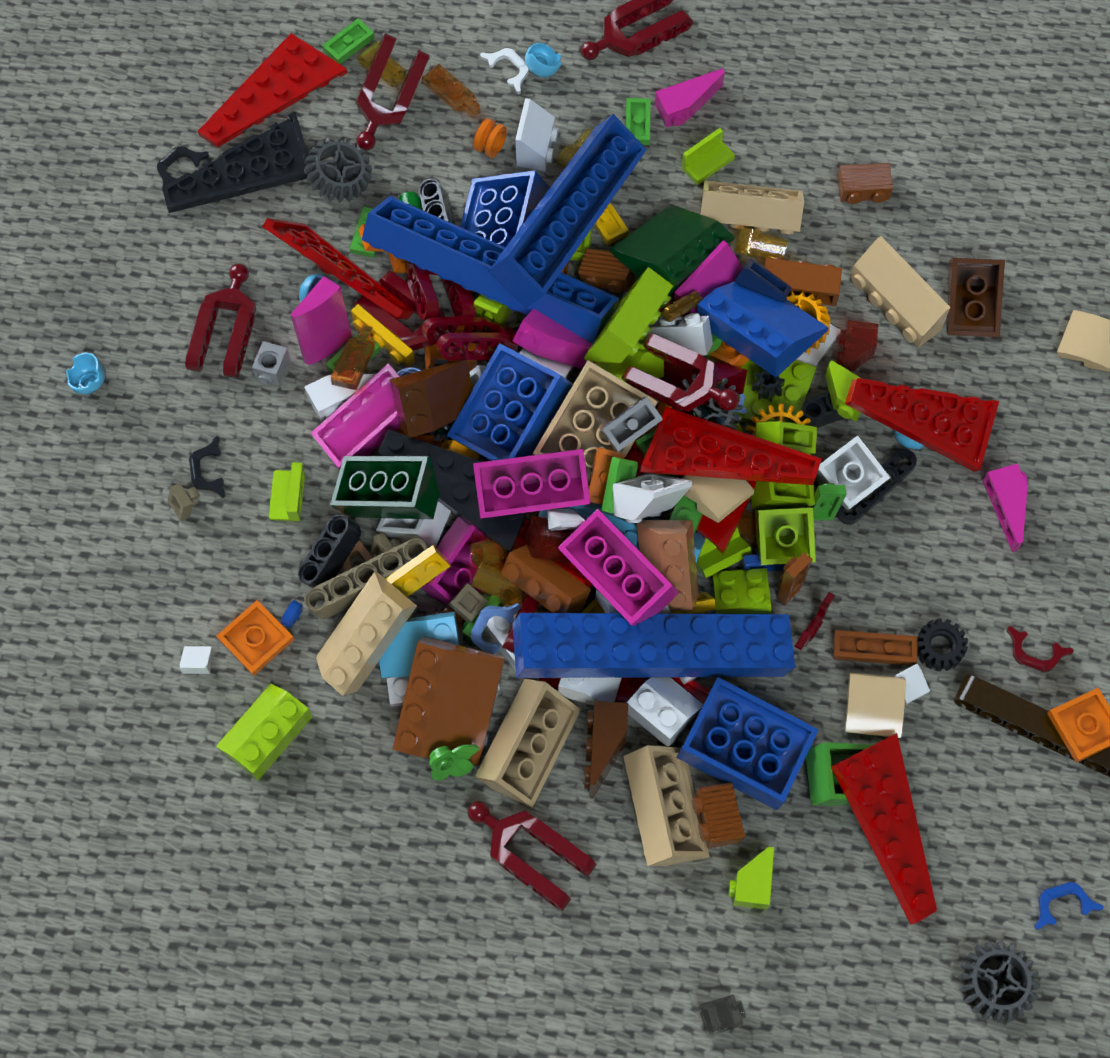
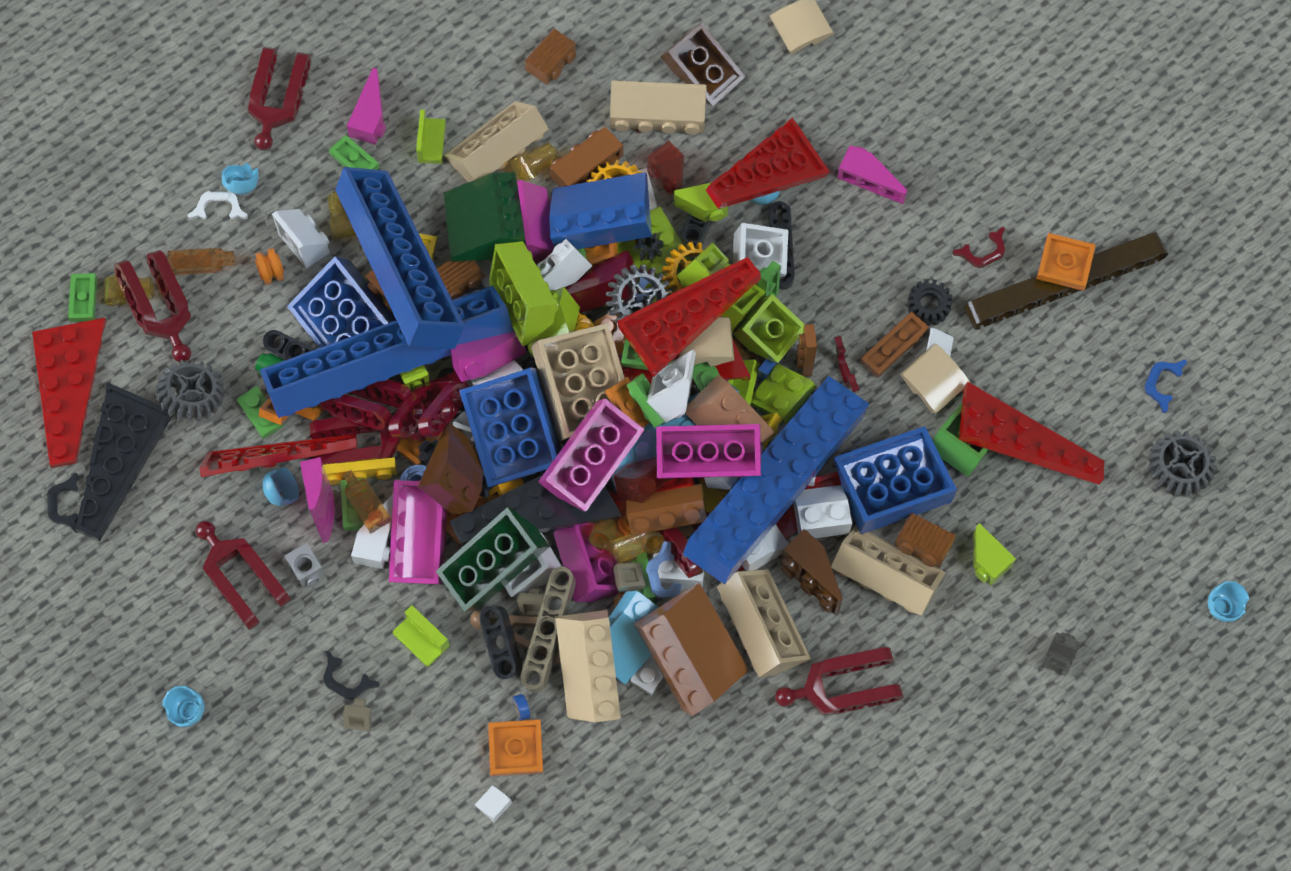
camera: 50 degrees left, 0 degrees up
(265, 731) = (592, 796): lime slope -> none
(419, 571) = (579, 588): yellow plate -> none
(451, 762) = (735, 684): bright green plate -> none
(563, 519) = (638, 456): white slope -> none
(631, 424) = (612, 353): light grey brick -> none
(681, 306) = (543, 249): pearl gold axle -> none
(700, 391) = (633, 287): dark red piece -> none
(763, 281) = (565, 184): dark blue slope -> none

